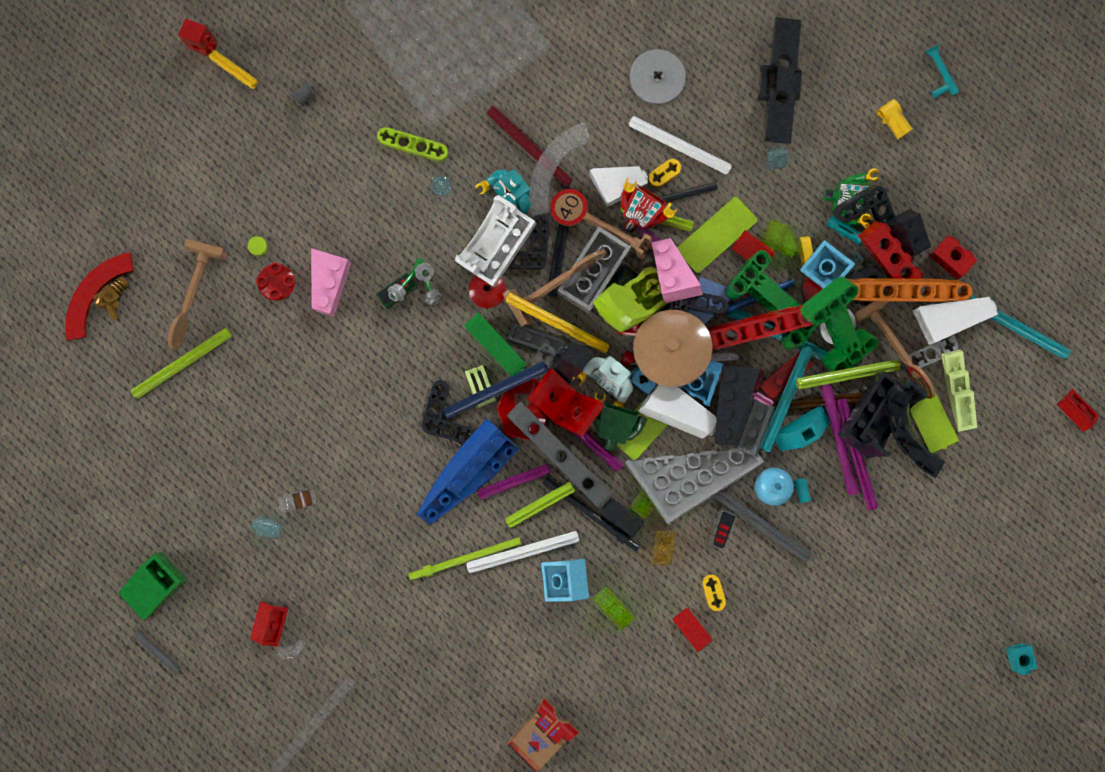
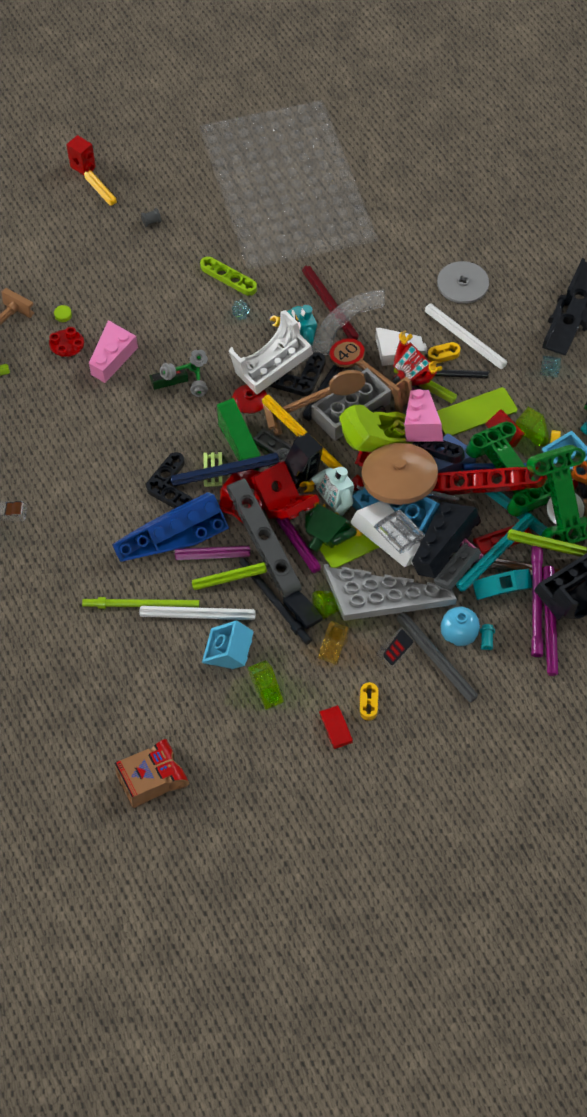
camera: 20 degrees right, 25 degrees down
(692, 413) = (399, 531): none -> clear slope

